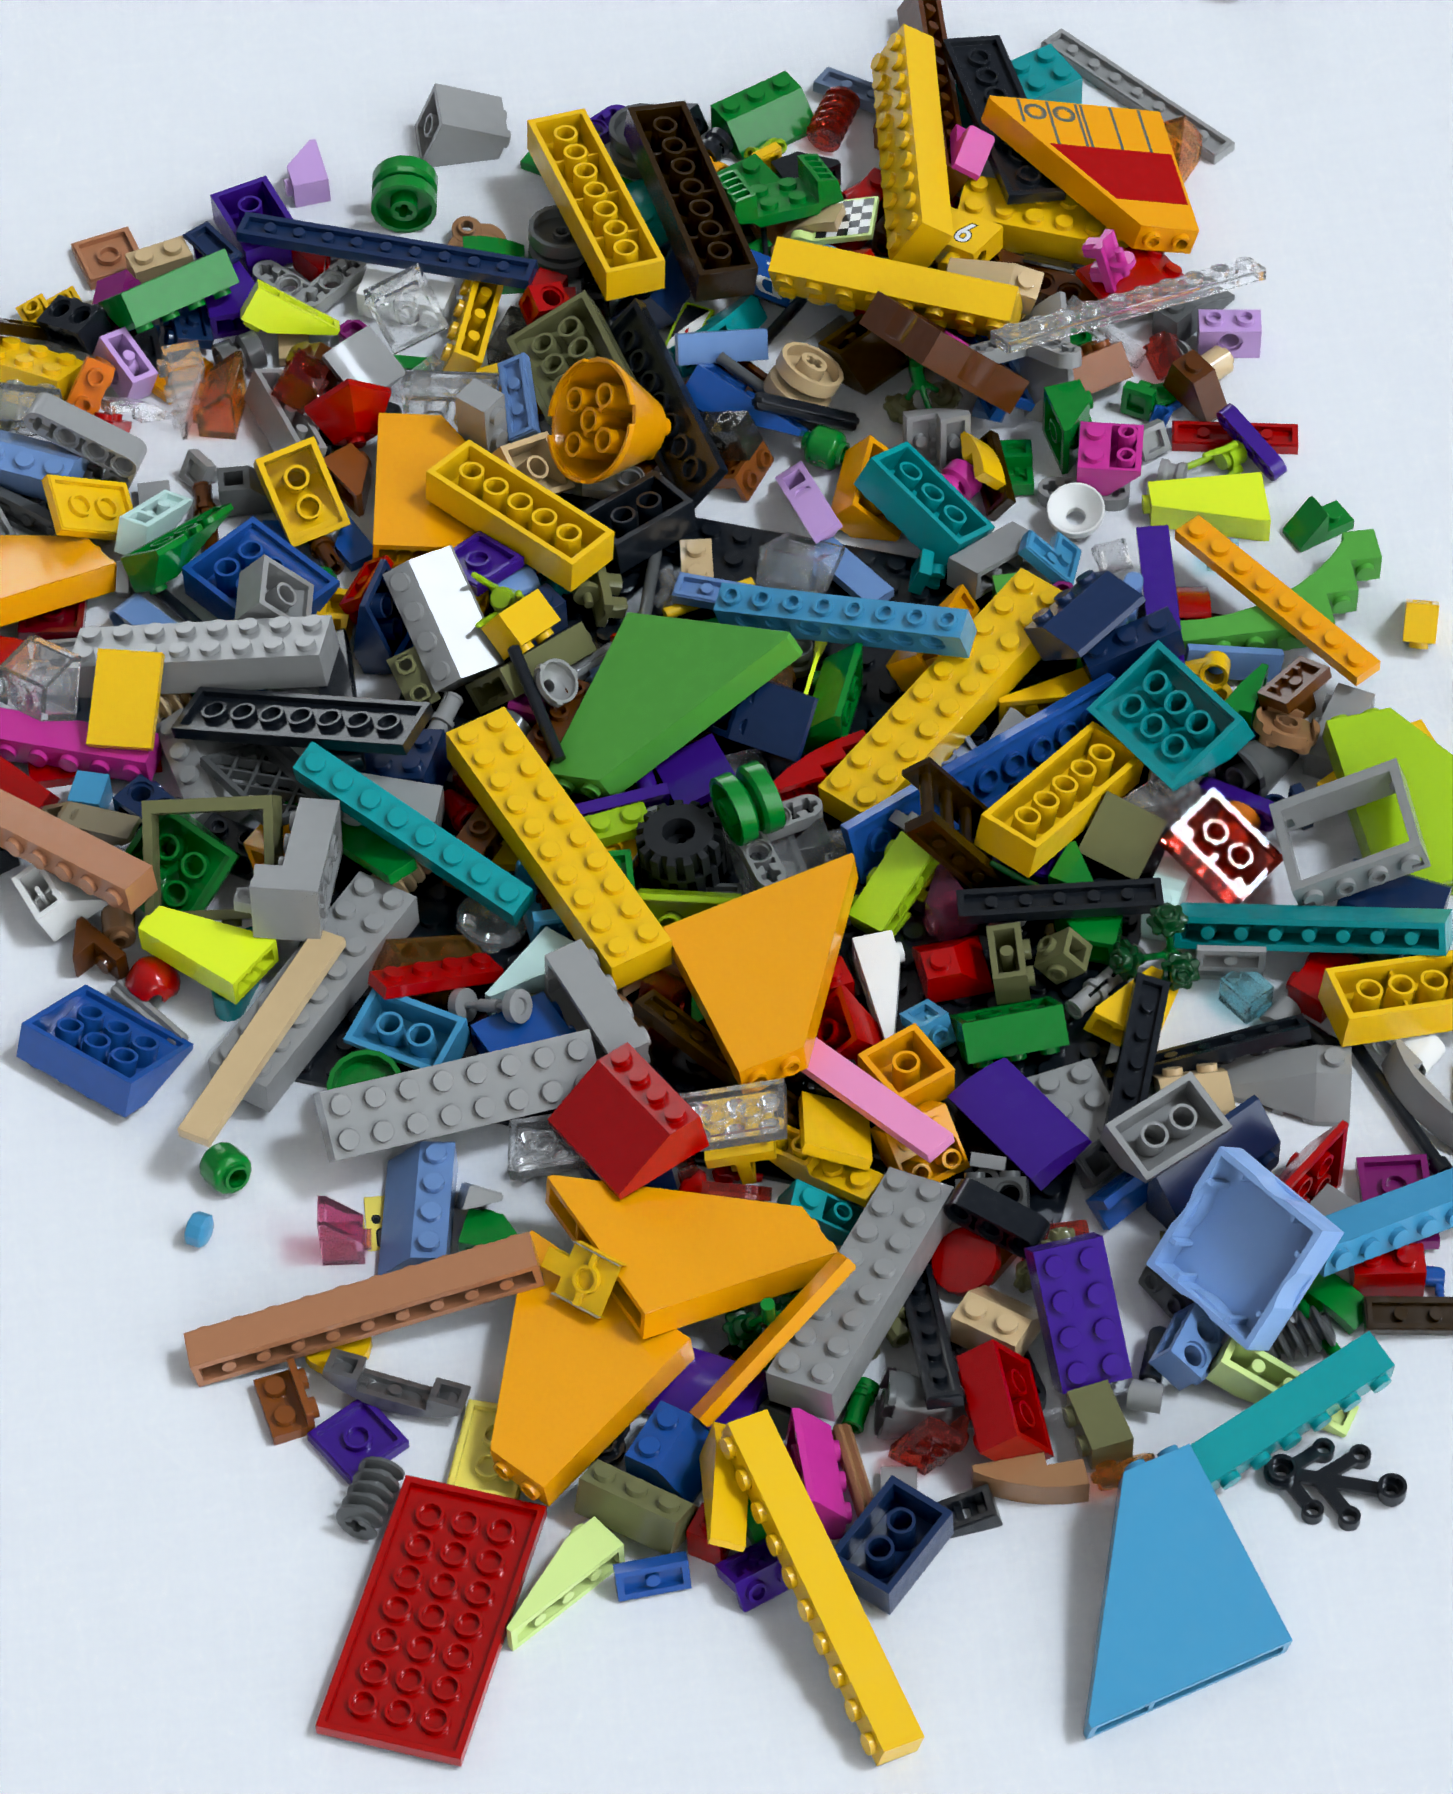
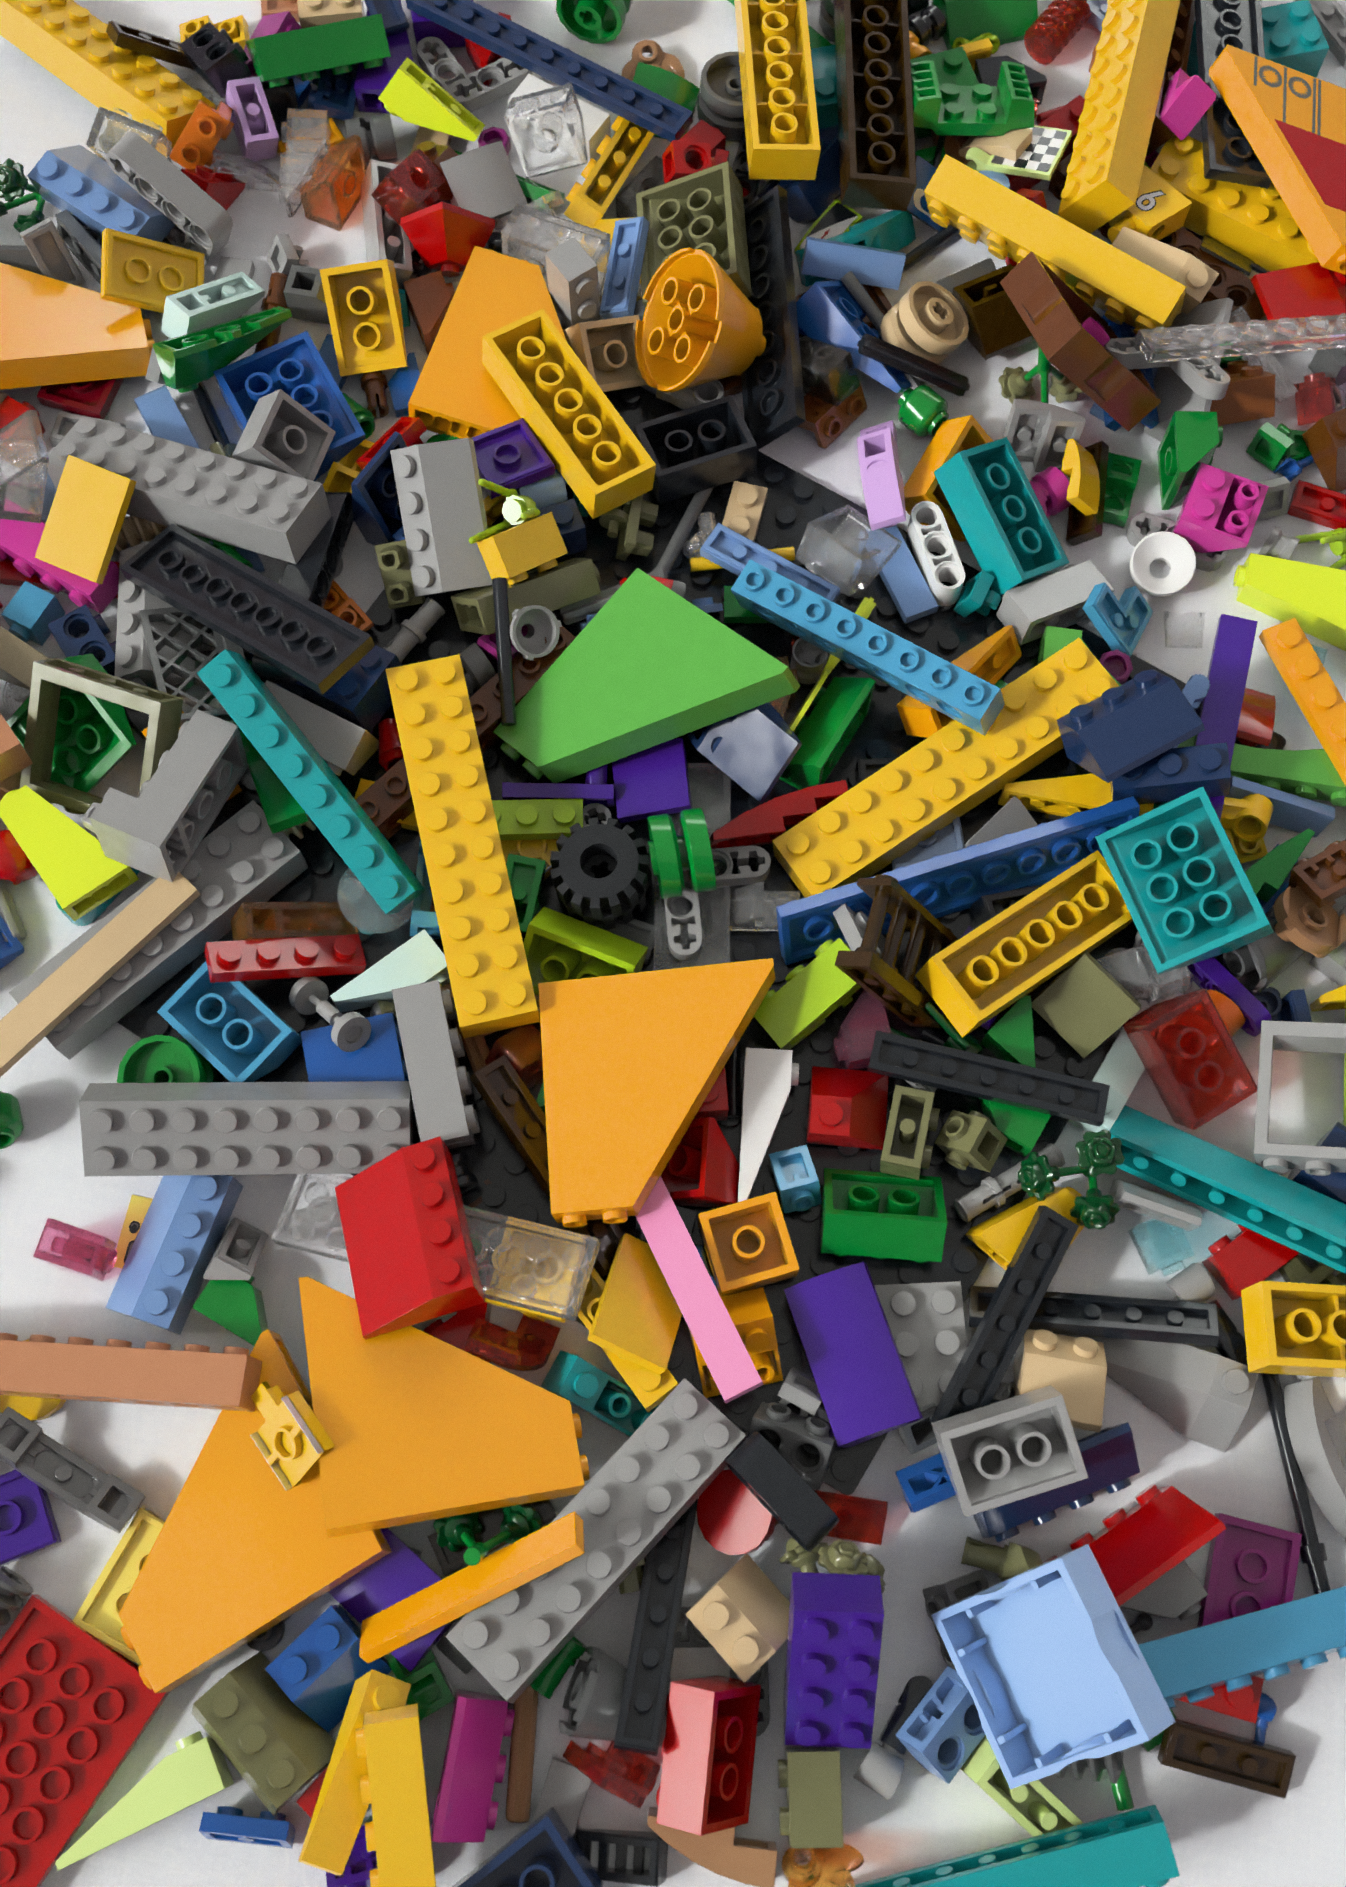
camera: 15 degrees right, 20 degrees up
(877, 548) = (936, 539): none -> white beam
(1111, 260) = (1296, 277): dark pink hips -> none

